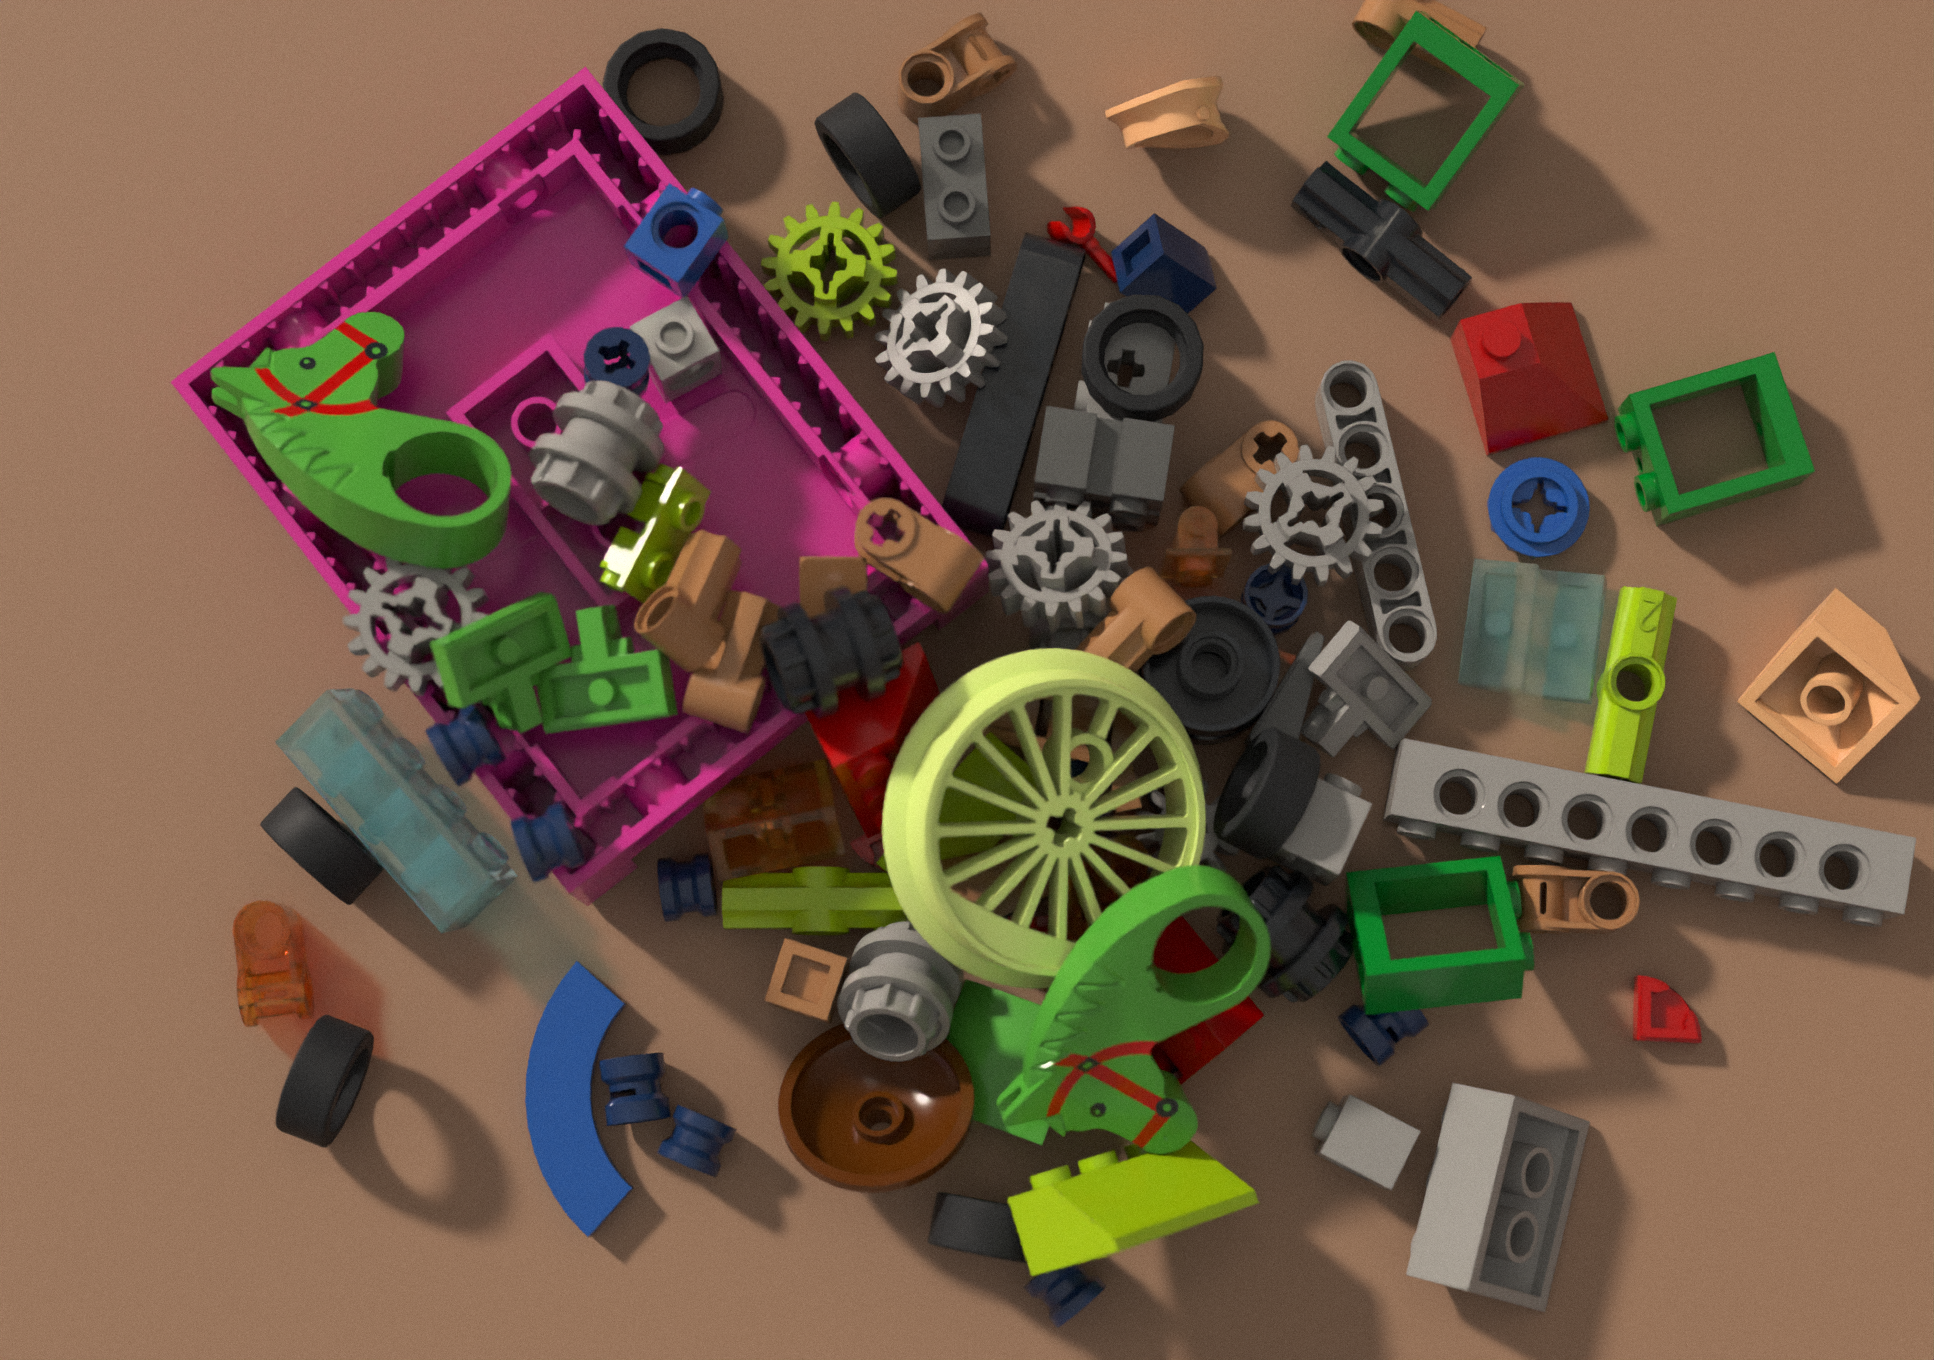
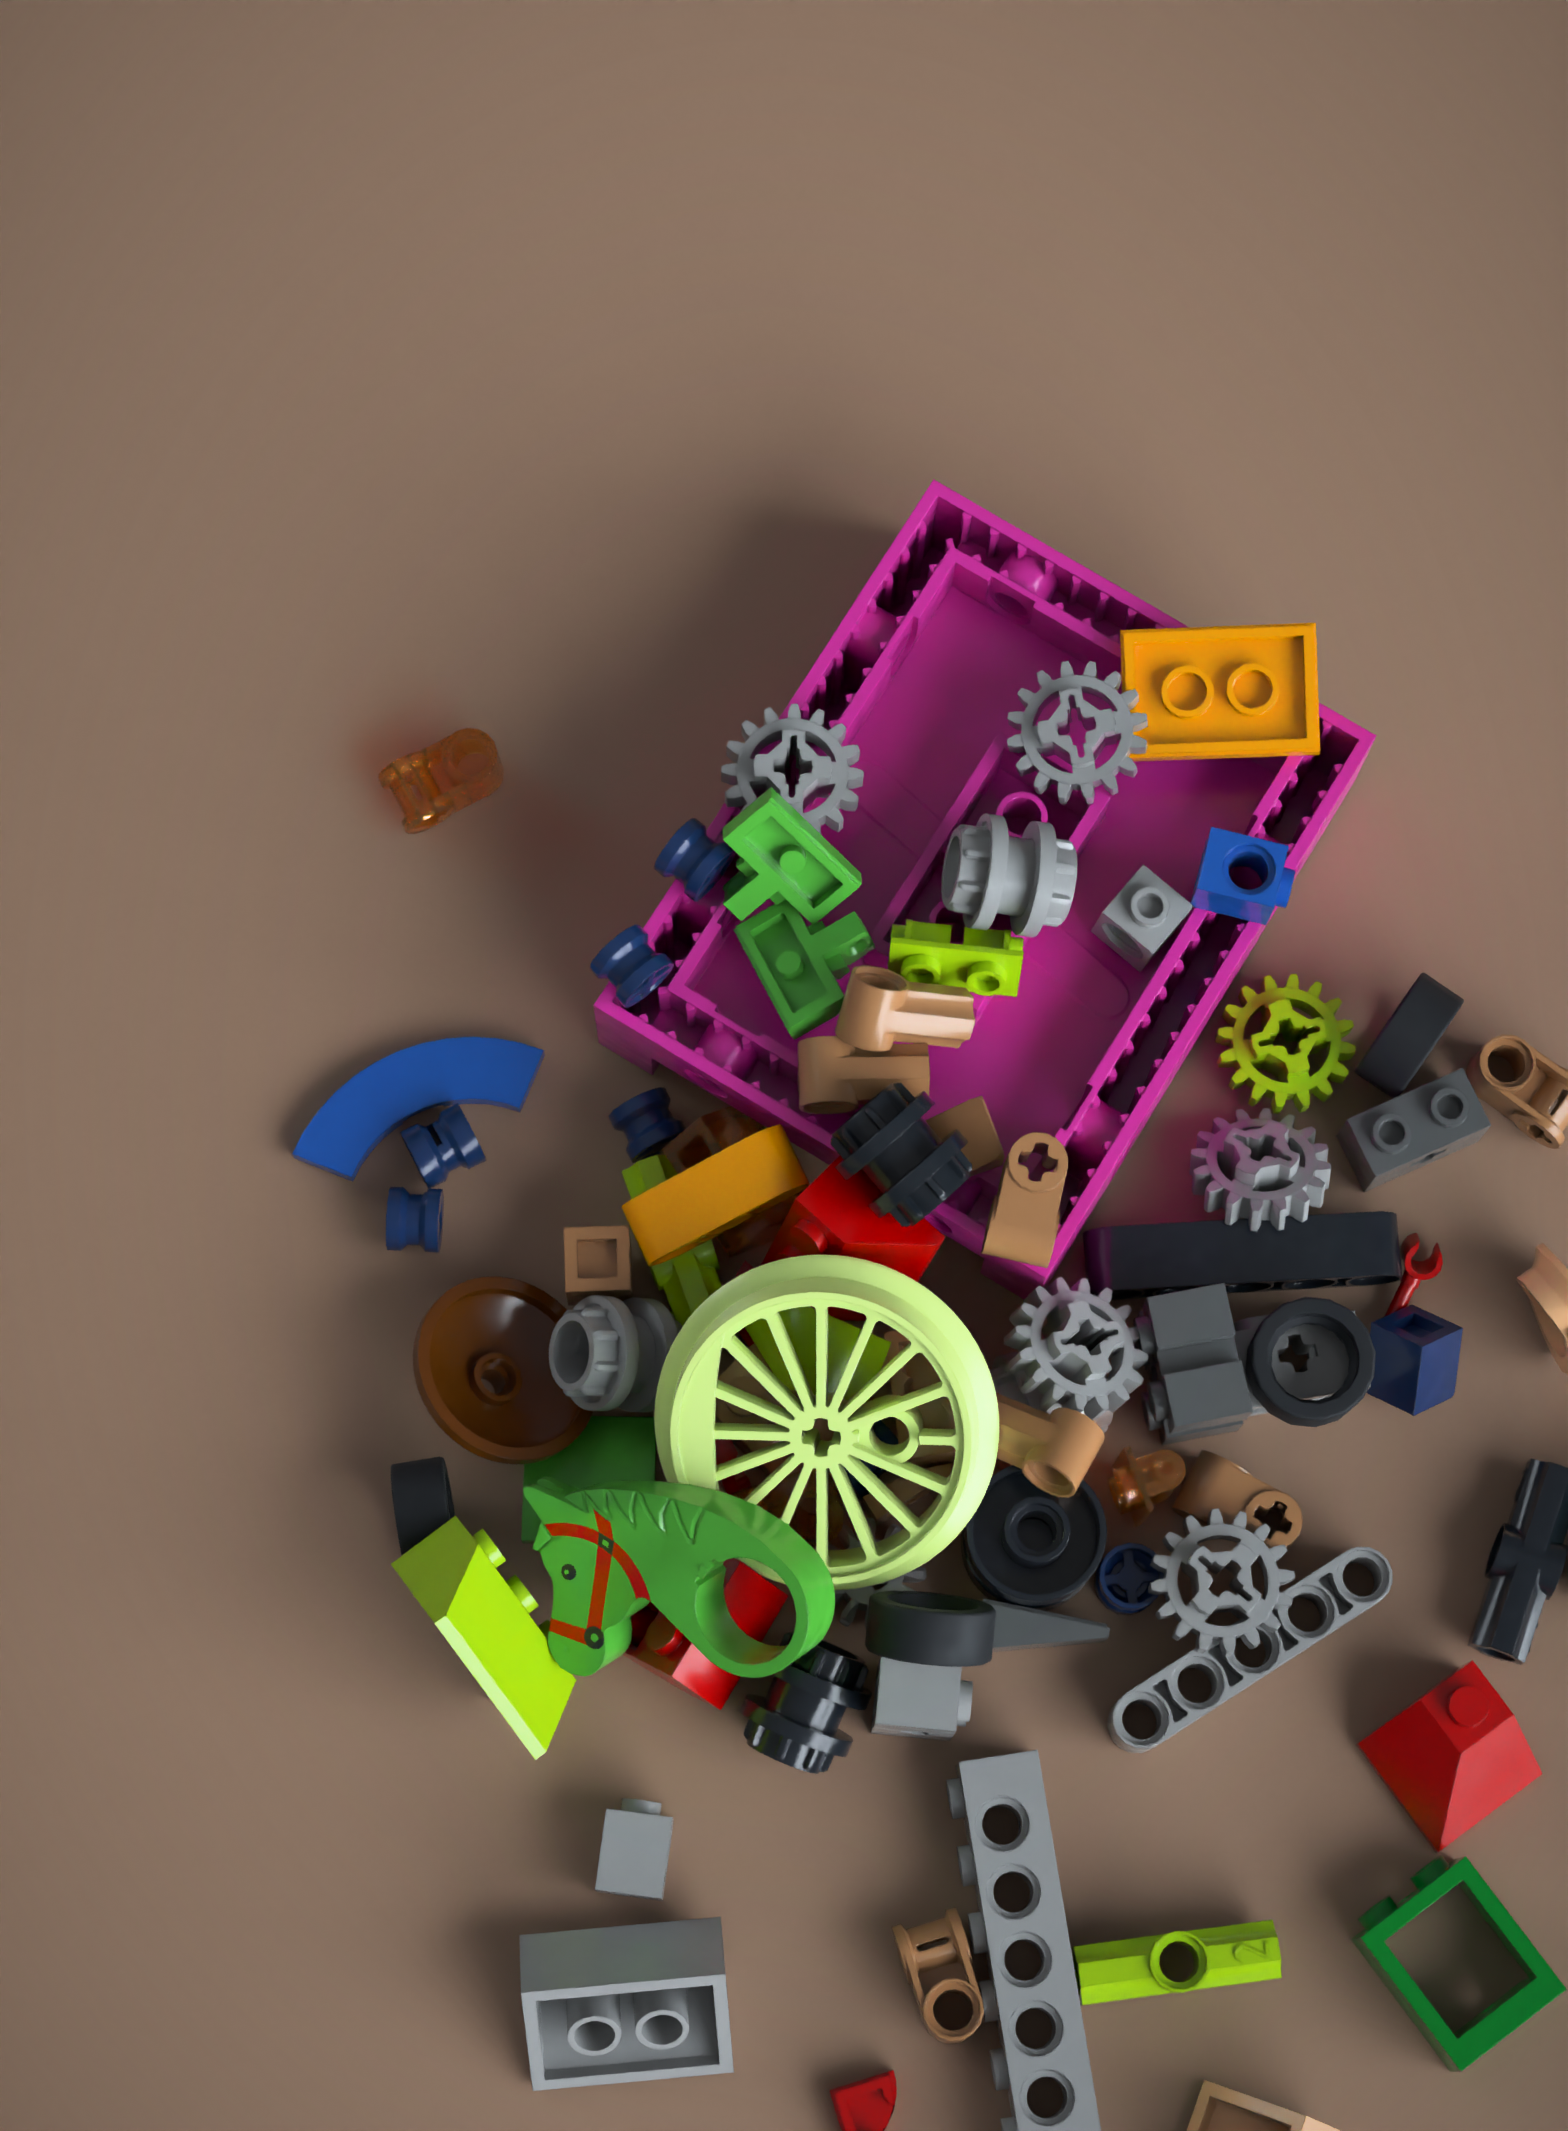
camera: 65 degrees right, 5 degrees down
(321, 846) = (565, 780): black tyre -> none
(324, 1080) = (351, 862): black tyre -> none
(346, 457) = (922, 650): bright green animal -> none
(397, 808) = (621, 832): clear light blue brick -> none
(483, 309) = (1102, 725): none -> light grey gear
(489, 192) = (1224, 690): none -> light orange tile
(633, 354) = (1096, 881): dark blue wheel -> none
(674, 45) = (1407, 782): black tyre -> none
(790, 845) = (715, 1195): none -> light orange beam
(1065, 1291) = (394, 1612): dark blue wheel -> none
(1361, 694) = (1068, 1695): light grey hinge -> none
(1380, 1032) = (757, 1829): dark blue wheel -> none
(1442, 978) = (816, 1868): green window -> none
(1532, 631) = (1196, 1848): clear light blue slope -> none
(1560, 490) = (1336, 1783): blue gear -> none

